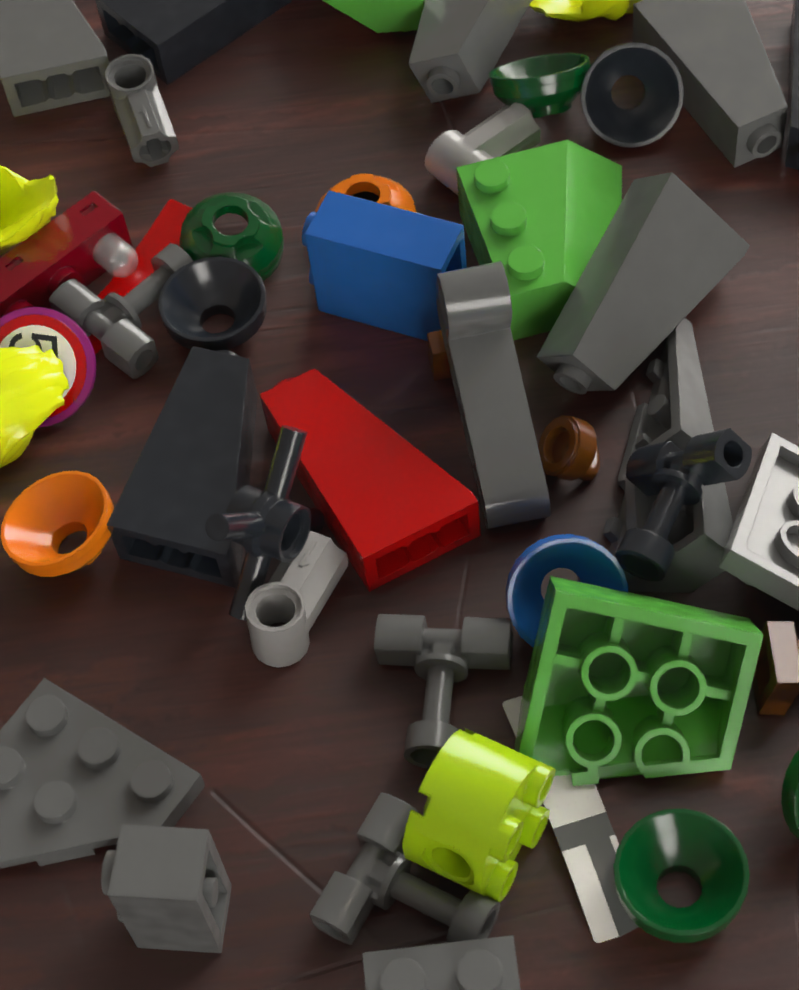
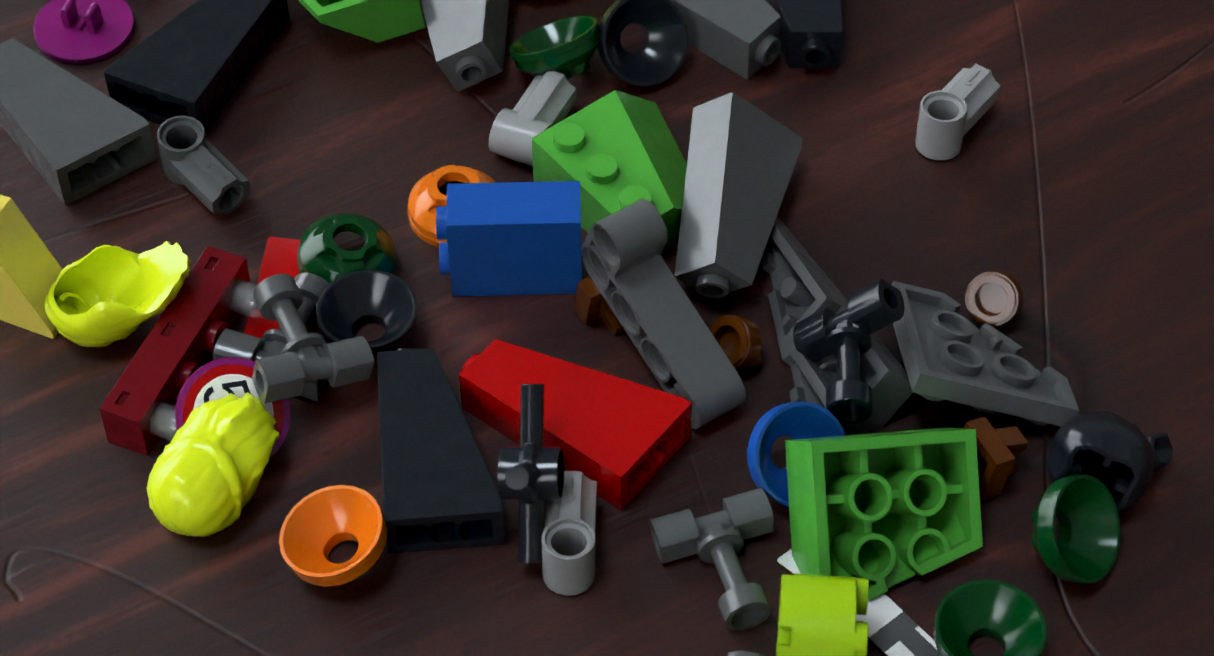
camera: 30 degrees left, 5 degrees down
(121, 328) = (305, 354): none -> dark grey bar

